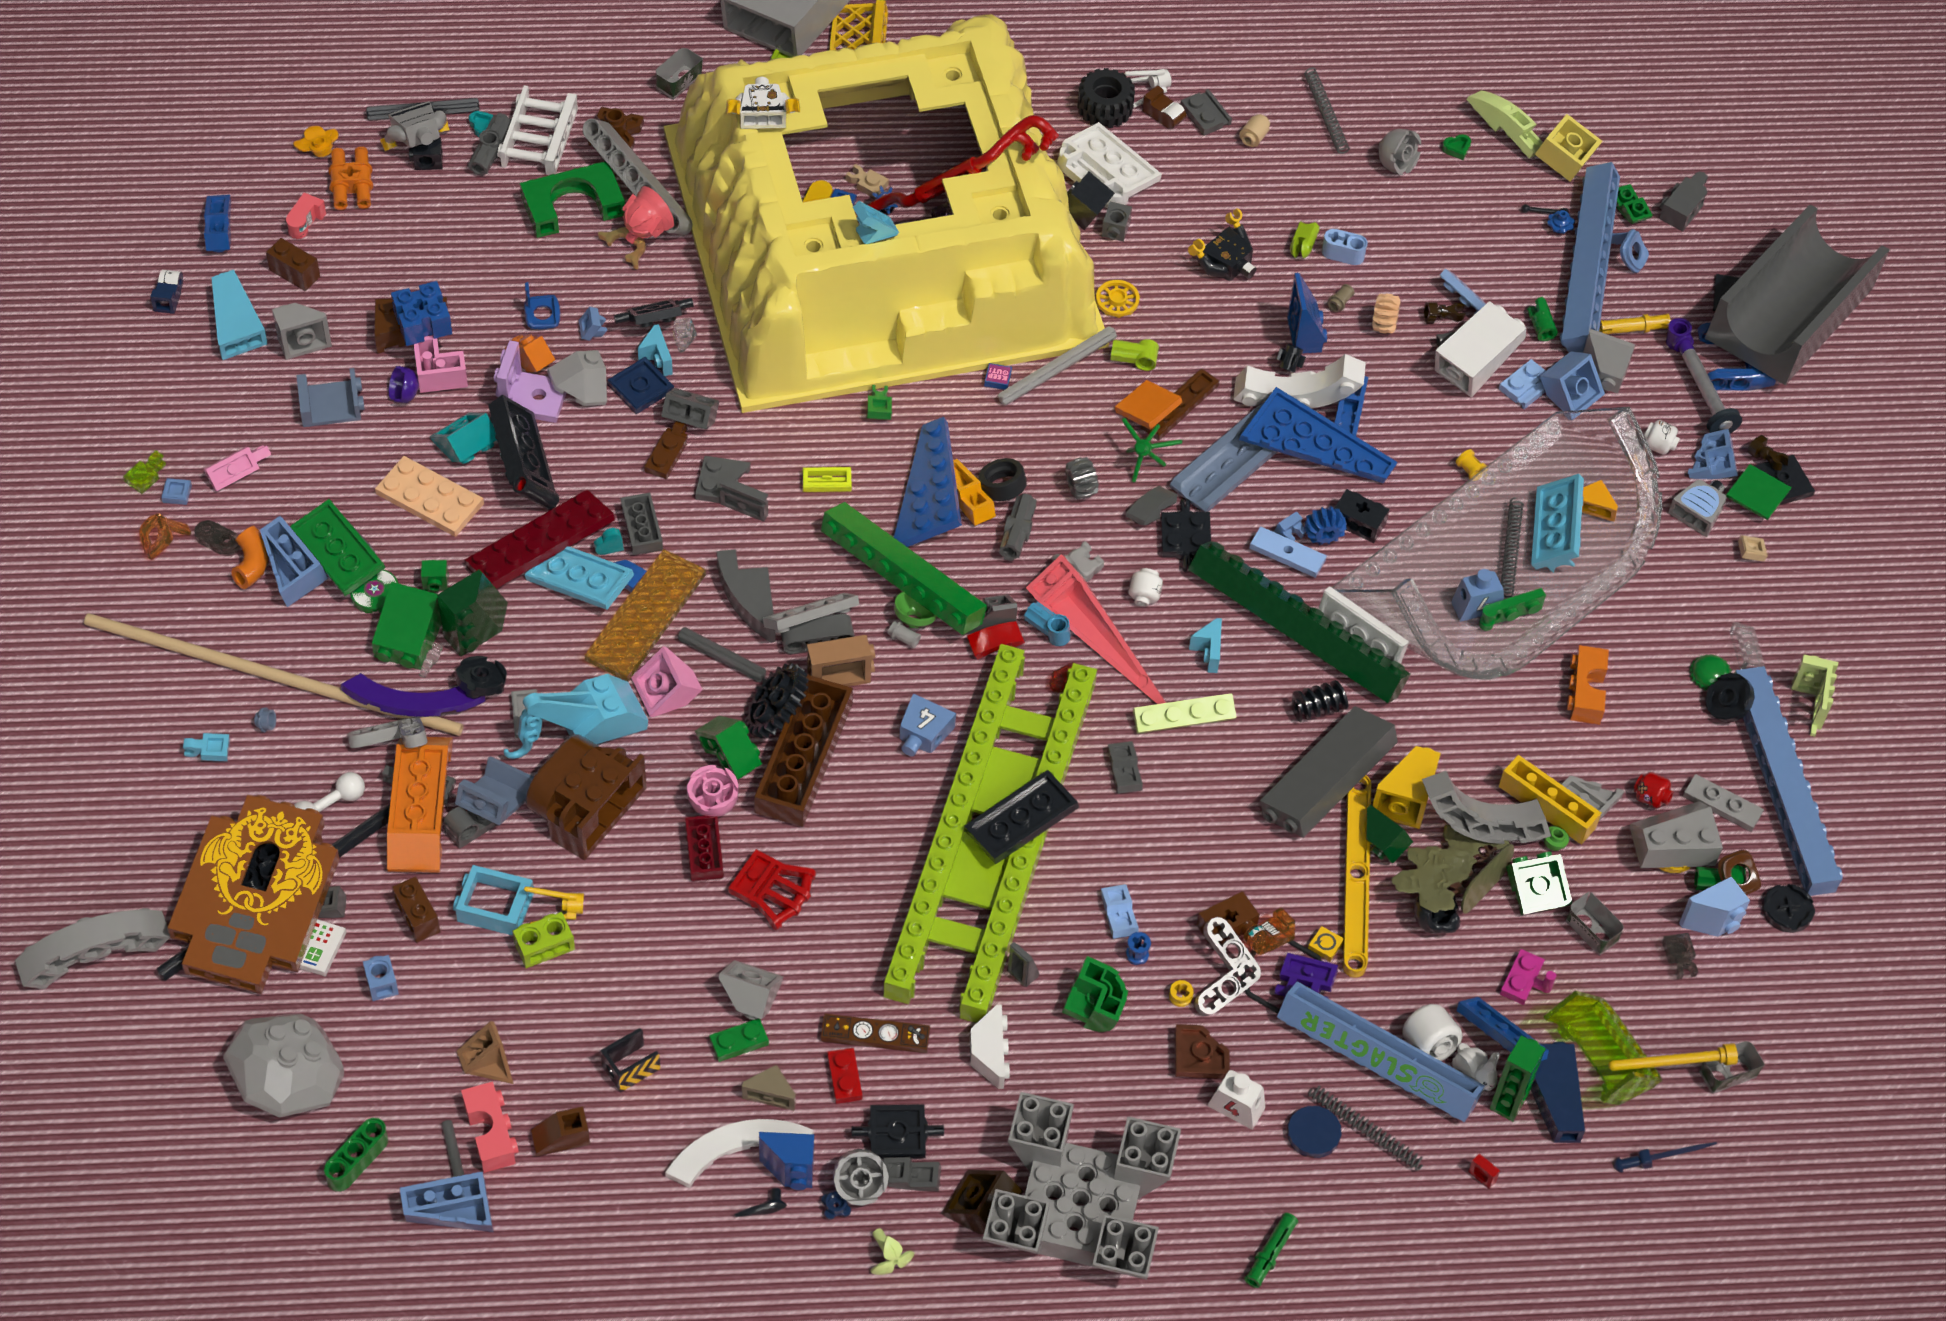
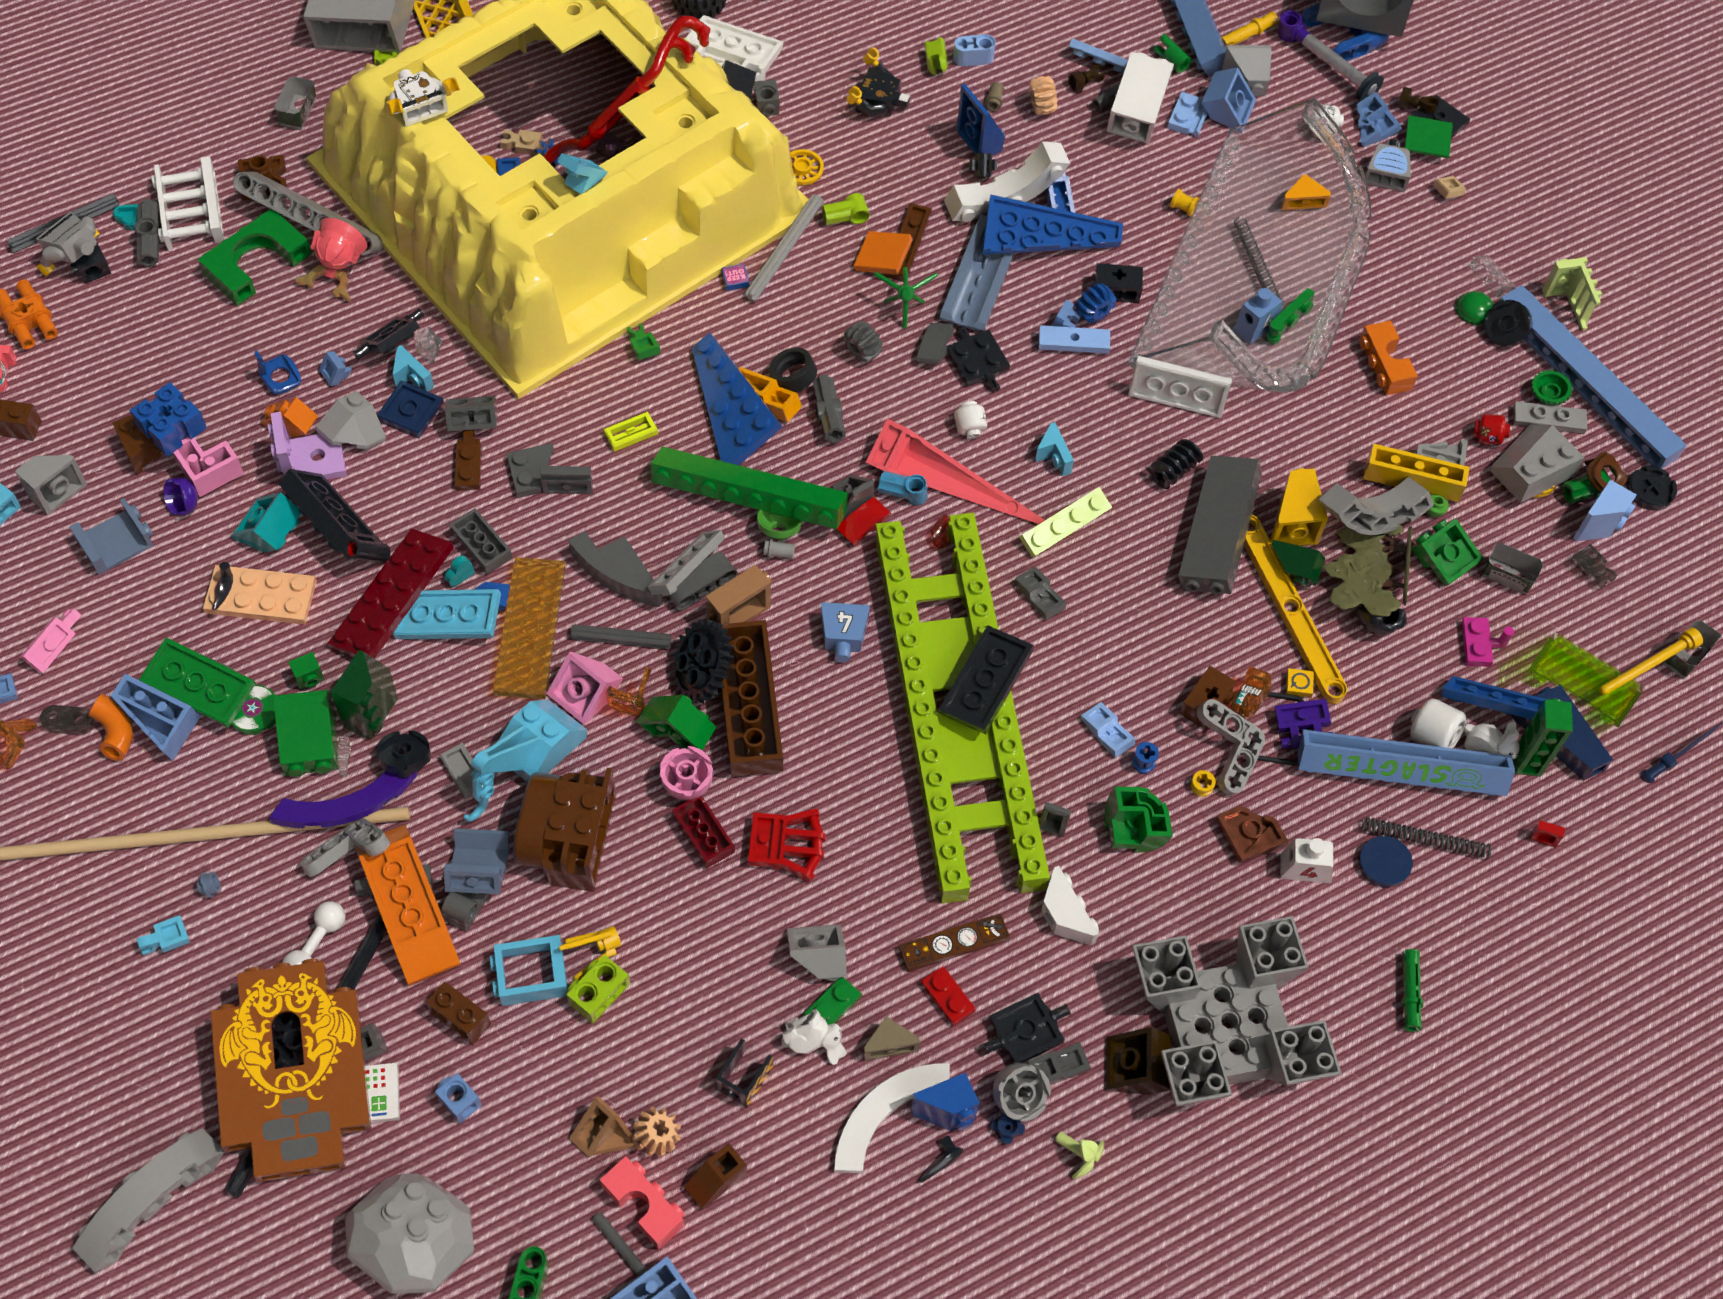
camera: 25 degrees left, 5 degrees up
(401, 474) = (223, 585): none -> black bar
(540, 1072) = (647, 1133): none -> light nougat gear
(703, 712) = (637, 700): none -> clear orange piece
(704, 1052) = (812, 1032): none -> white animal
(1080, 560) = (899, 416): light grey animal -> none
(1299, 621) = (1120, 397): dark green brick -> none
(1557, 523) = (1288, 225): medium azure piece -> none
(1739, 775) = (1551, 387): none -> green hat

